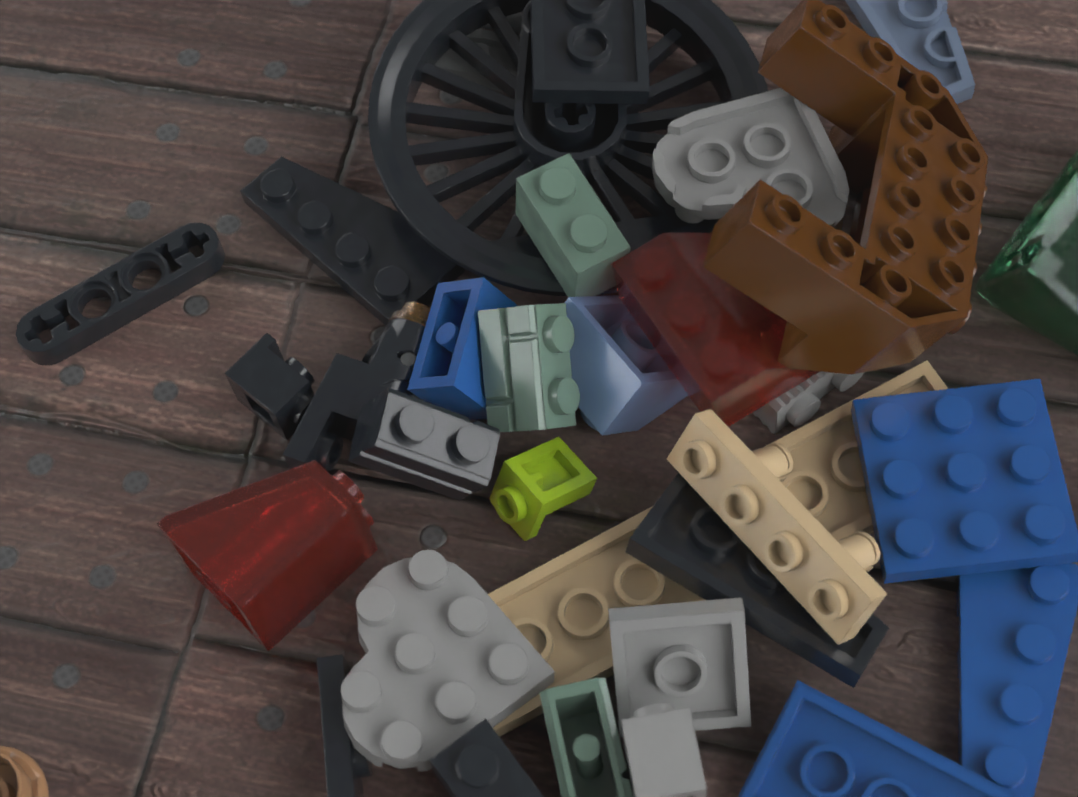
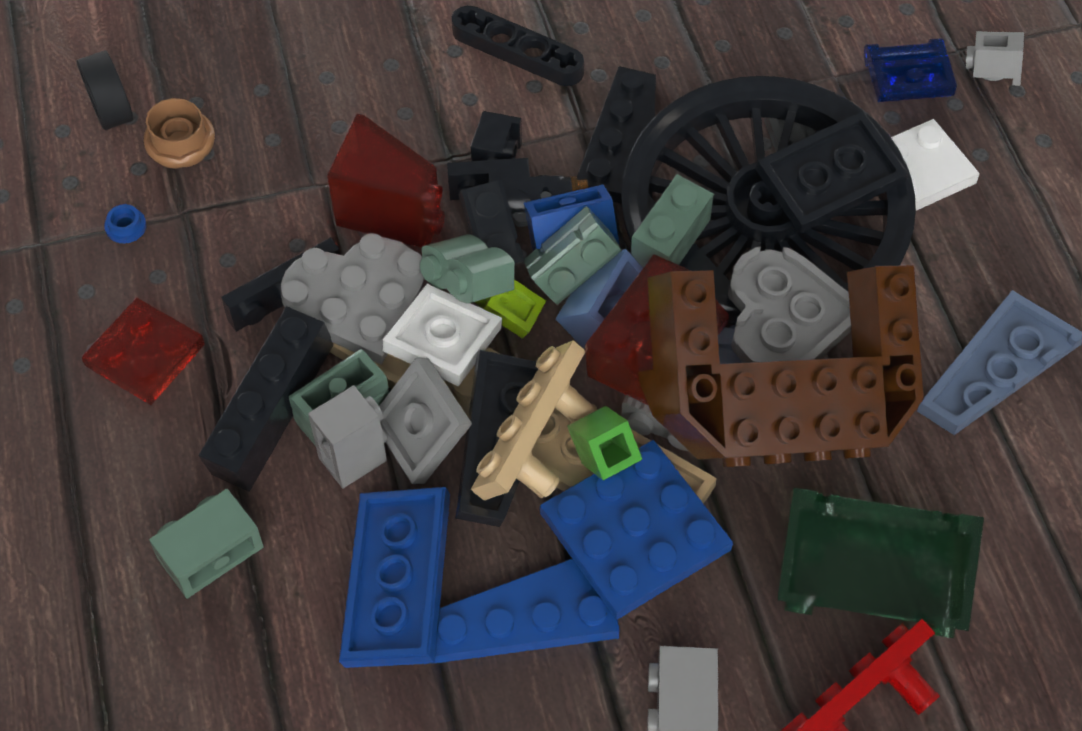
camera: 55 degrees right, 5 degrees down
(489, 497) = (467, 268): none -> sand green brick
(563, 579) = (443, 331): none -> white plate
(843, 453) = (604, 442): none -> bright green brick

